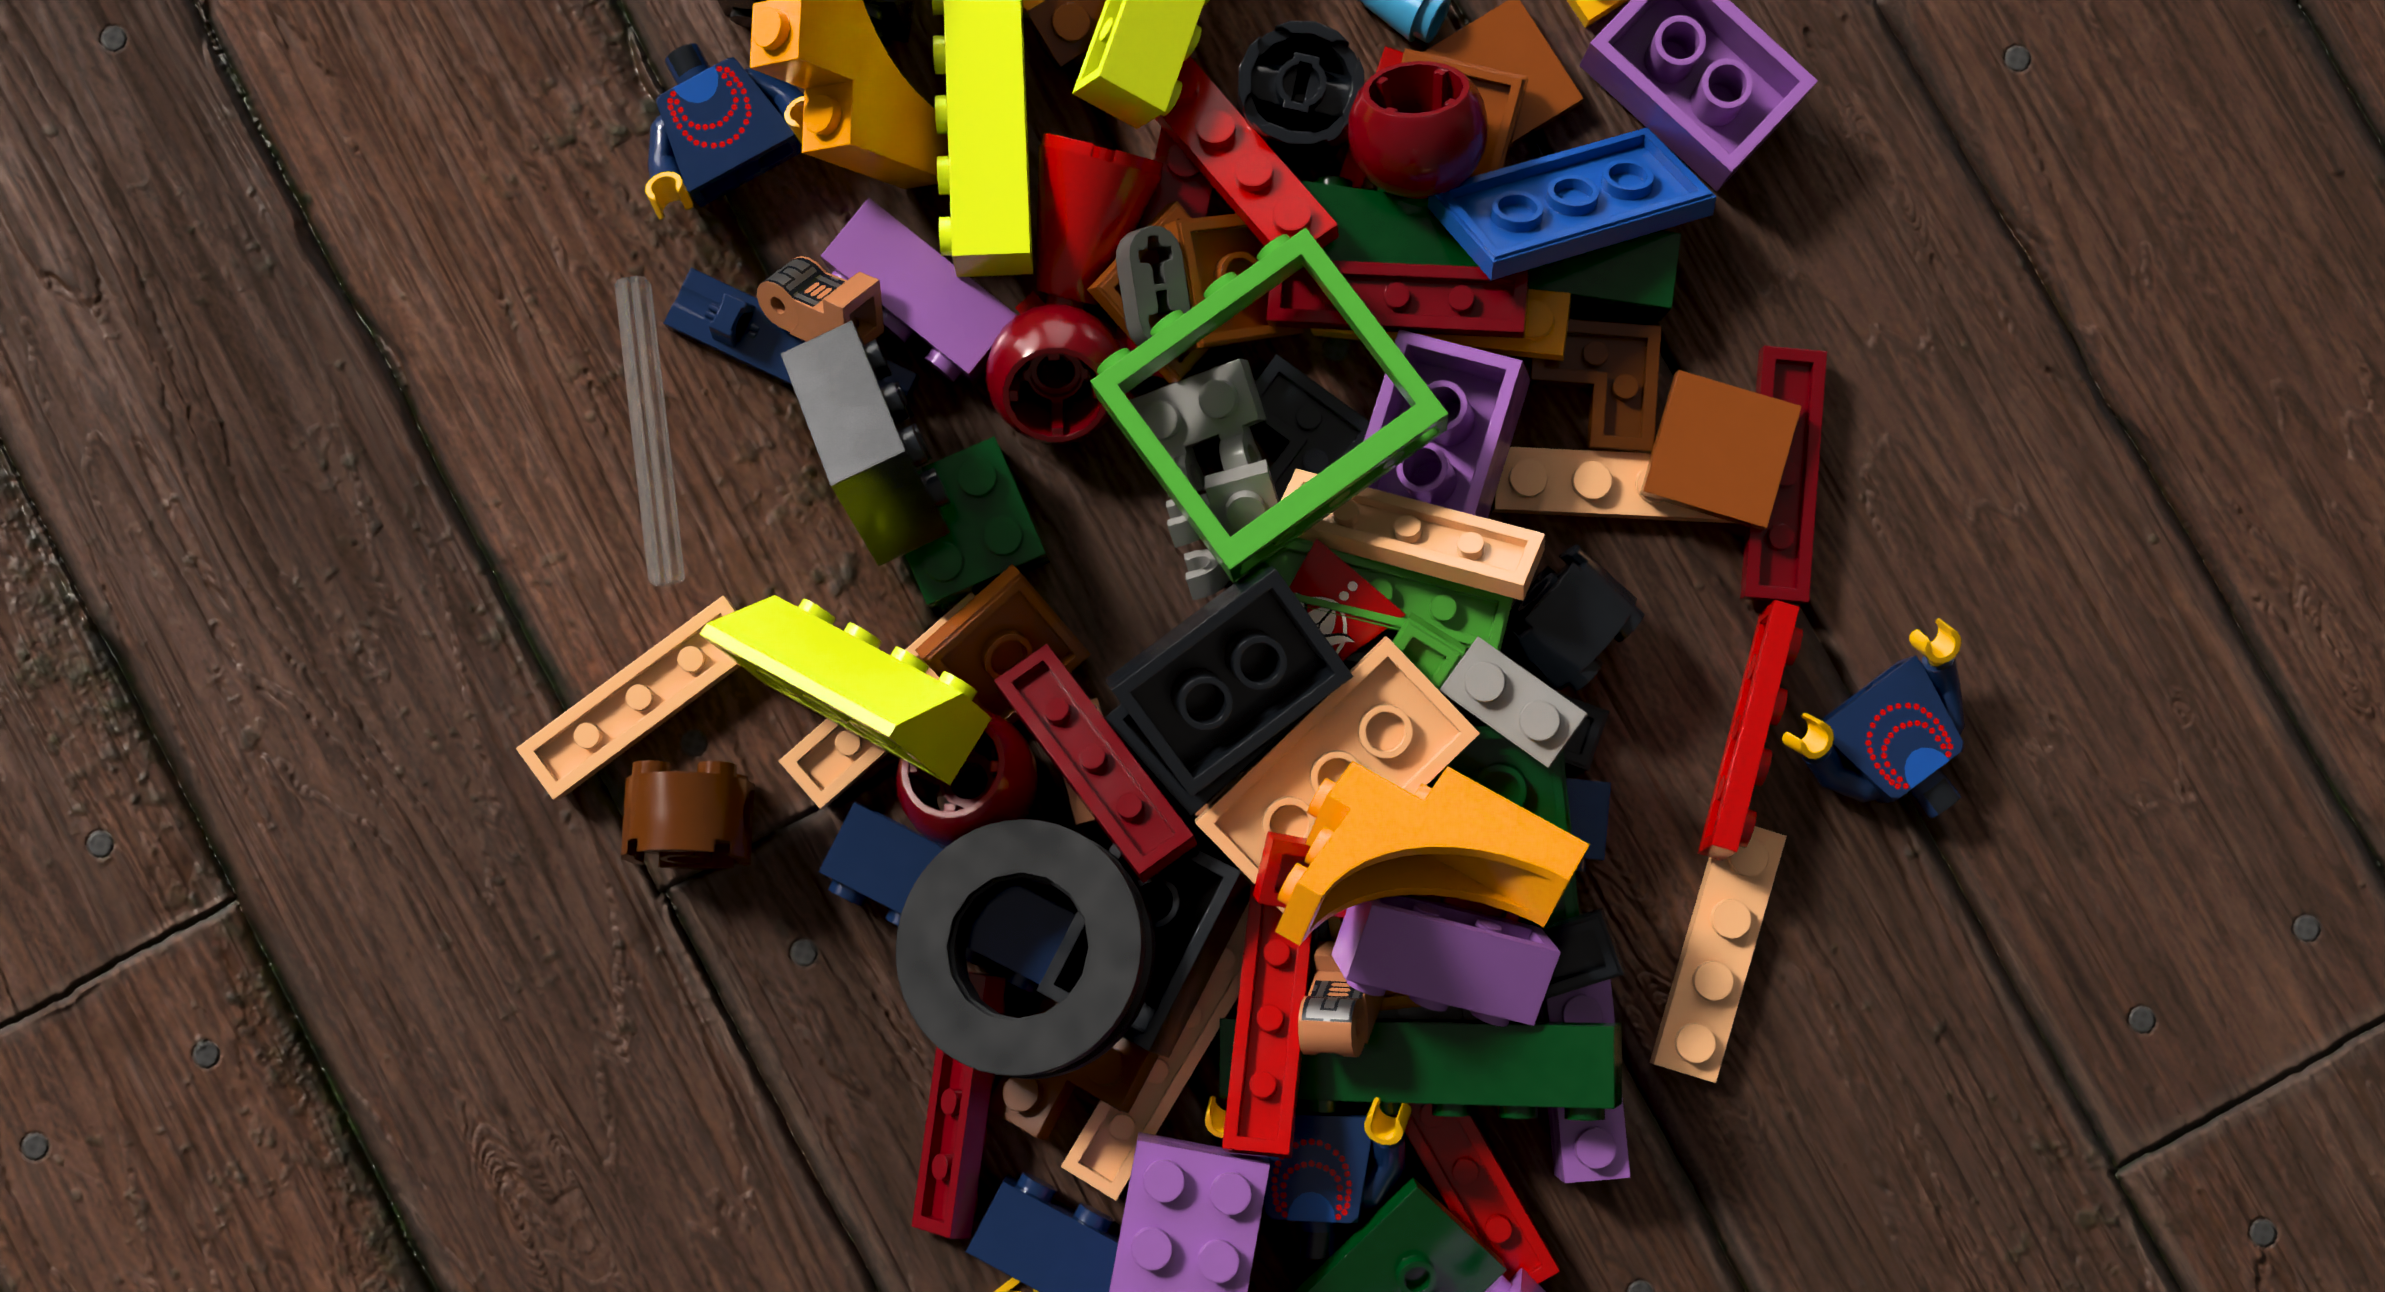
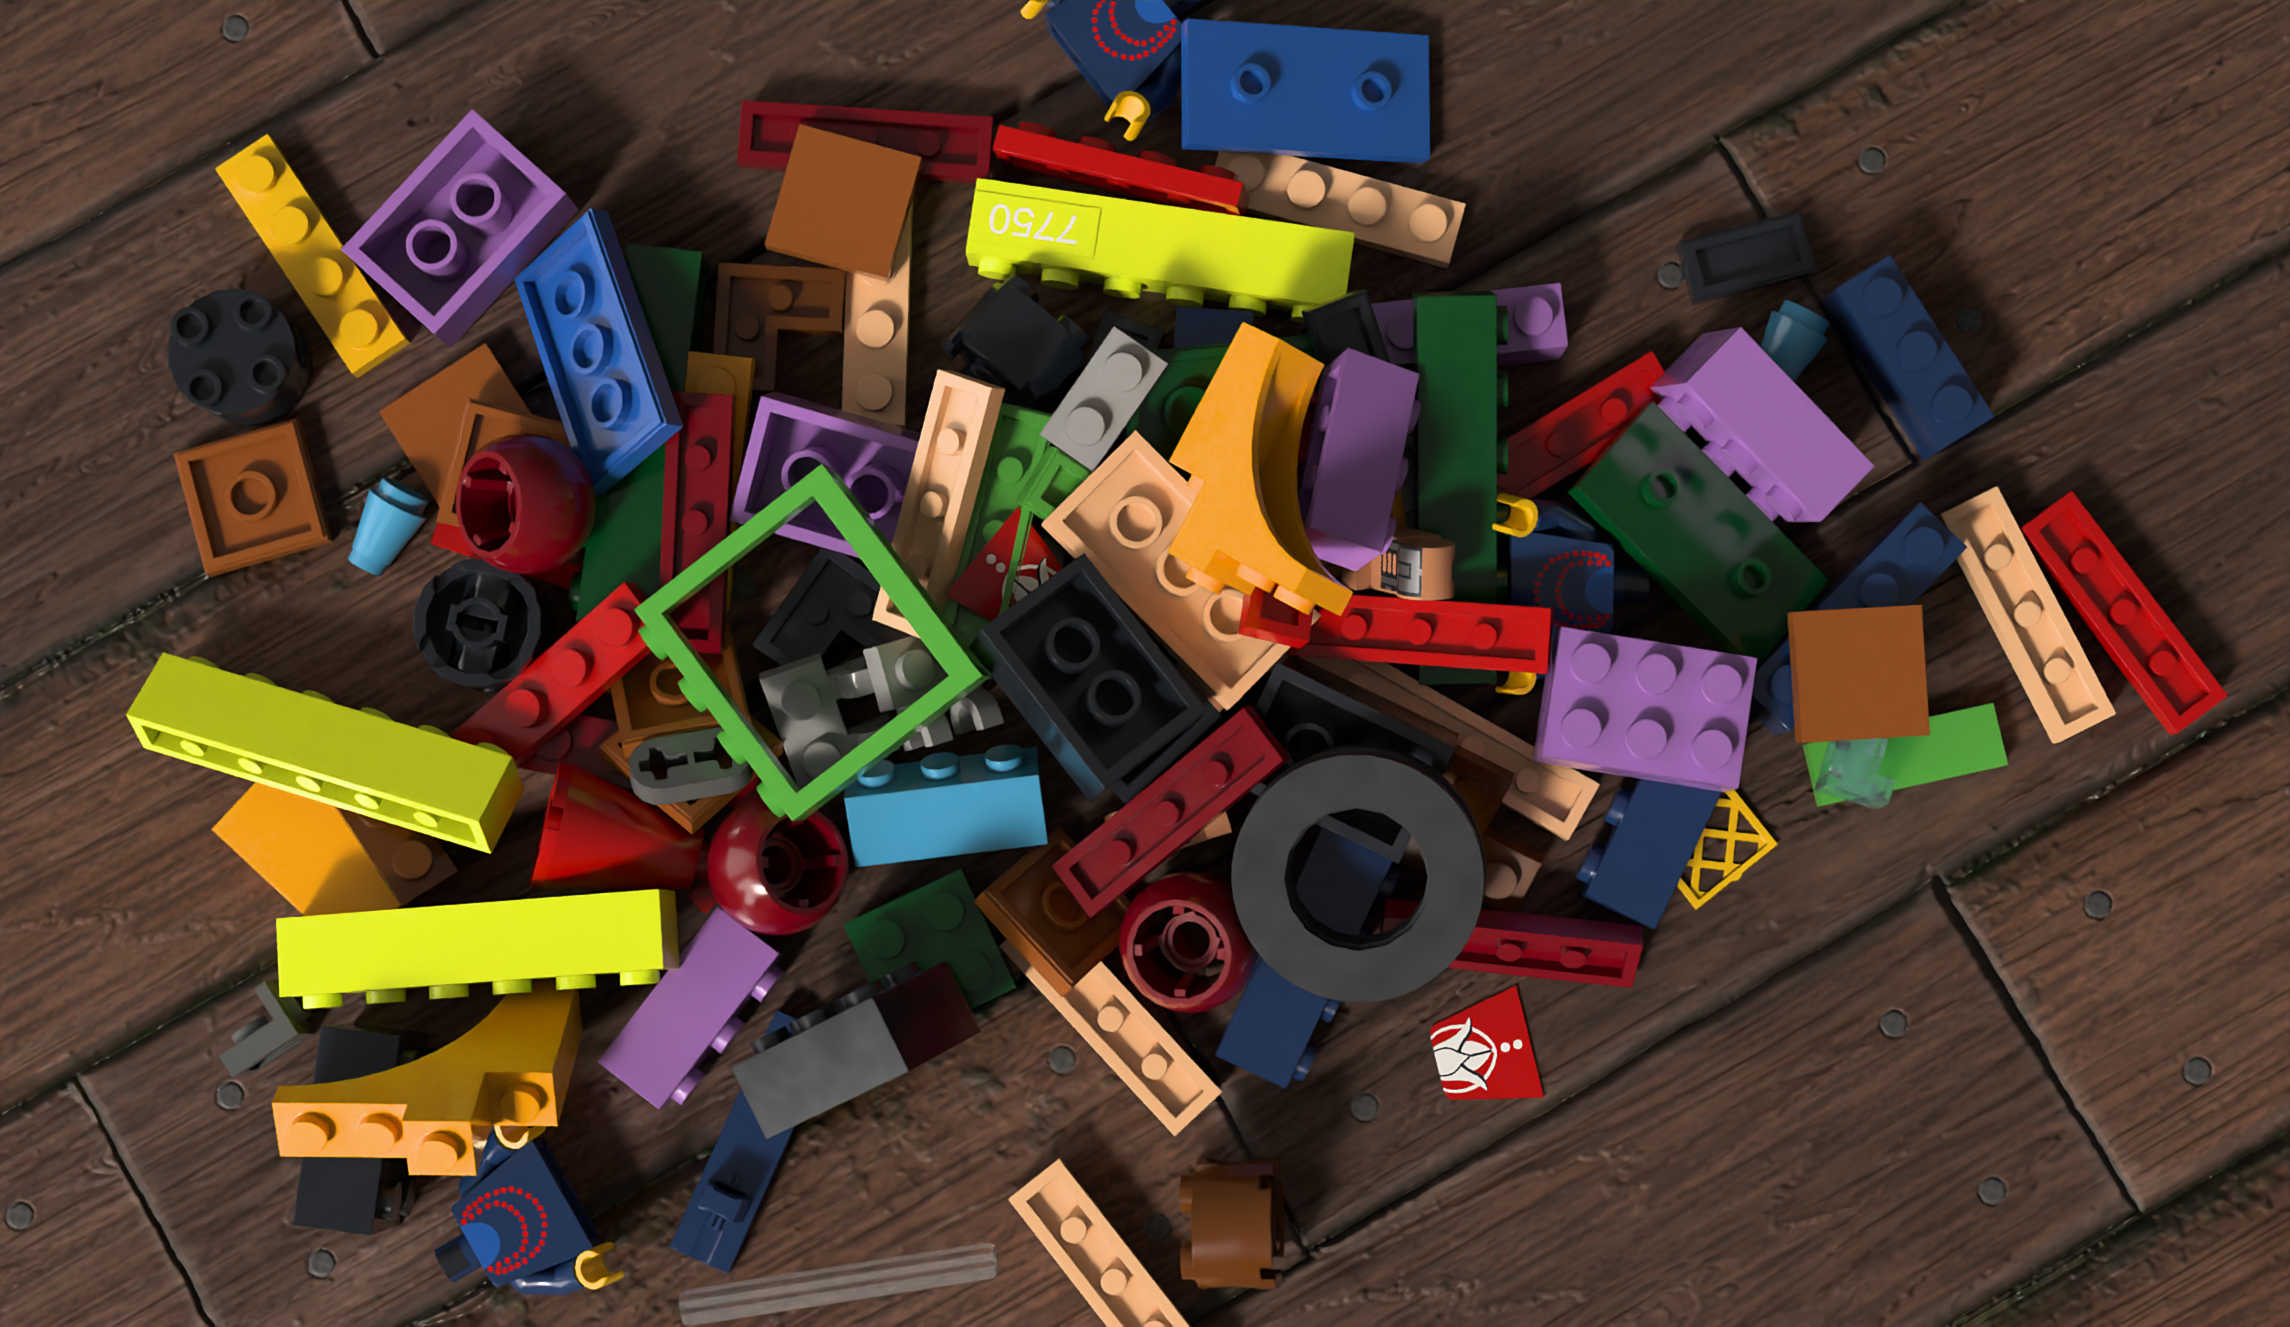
camera: 90 degrees left, 0 degrees up
(812, 301) = (708, 1109): nougat leg -> none
(854, 1077) = (1487, 1051): none -> red sticker
(855, 682) = (1097, 1055): neon yellow slope -> none
(1110, 542) = (947, 806): none -> dark azure brick
(1670, 764) = (1155, 249): none -> neon yellow brick
(1833, 920) = (1305, 91): none -> blue plate

